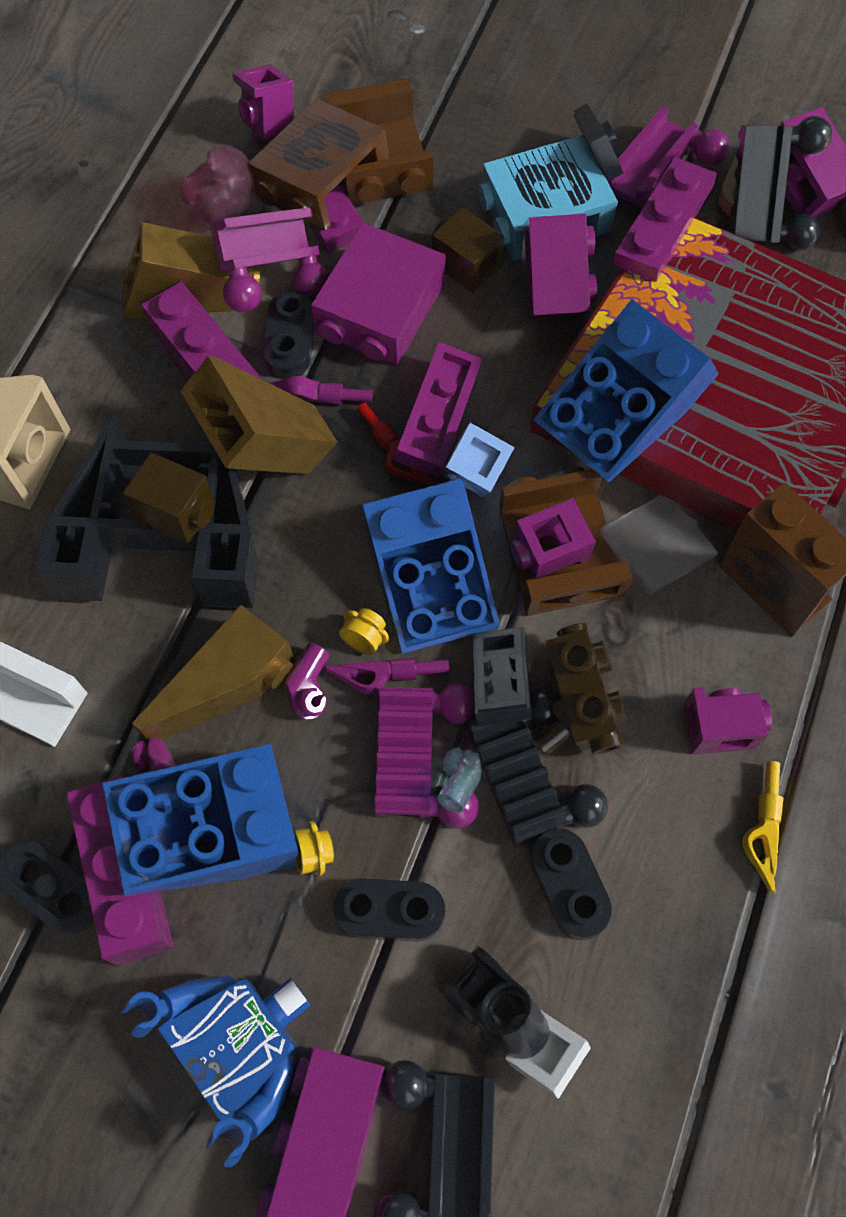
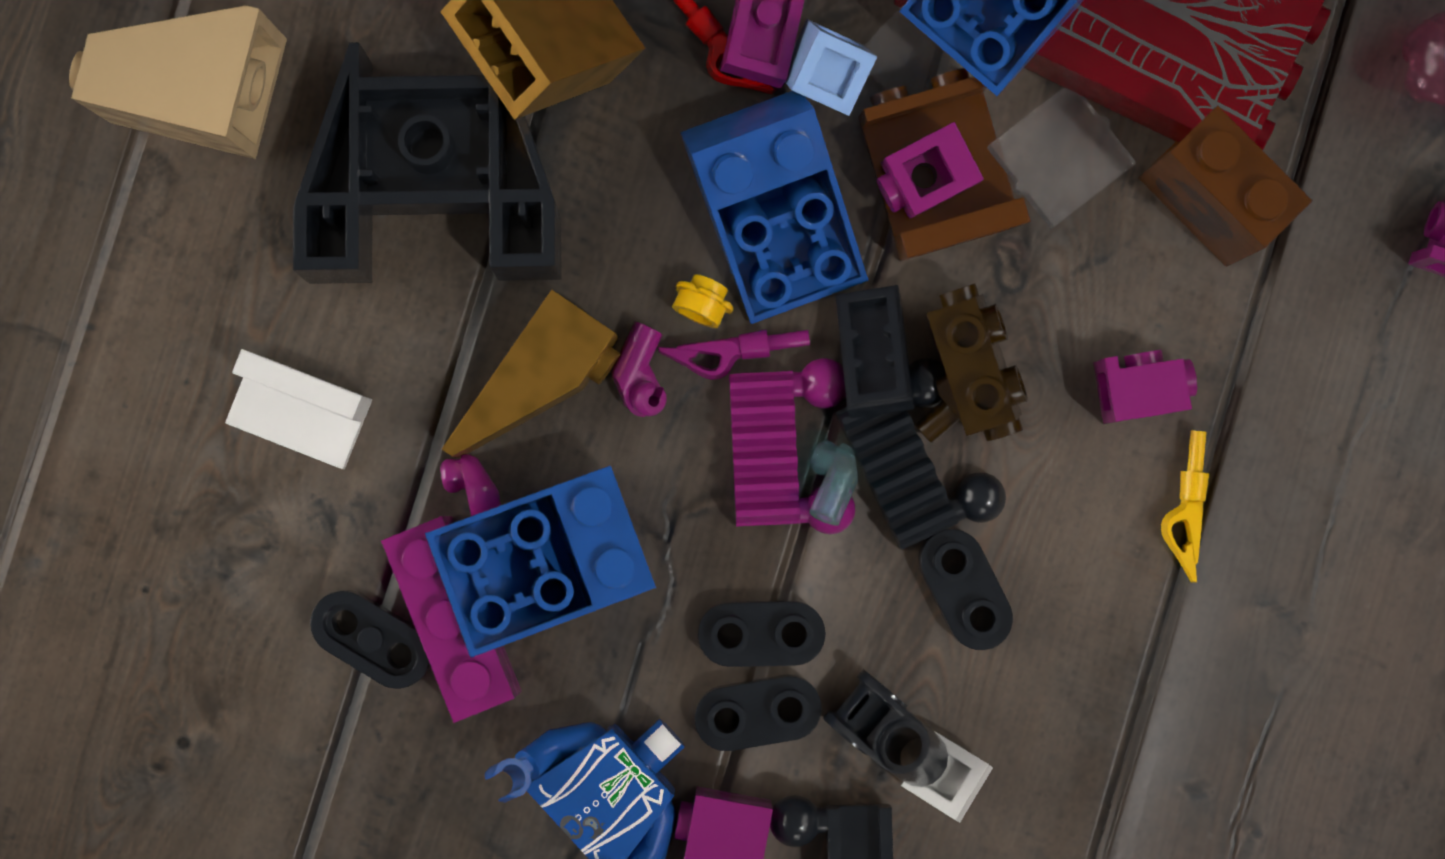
camera: 10 degrees left, 20 degrees up
(170, 498) = (452, 169): dark brown brick -> none
(314, 849) = (670, 573): yellow plate -> none
(380, 987) = (757, 710): none -> black plate

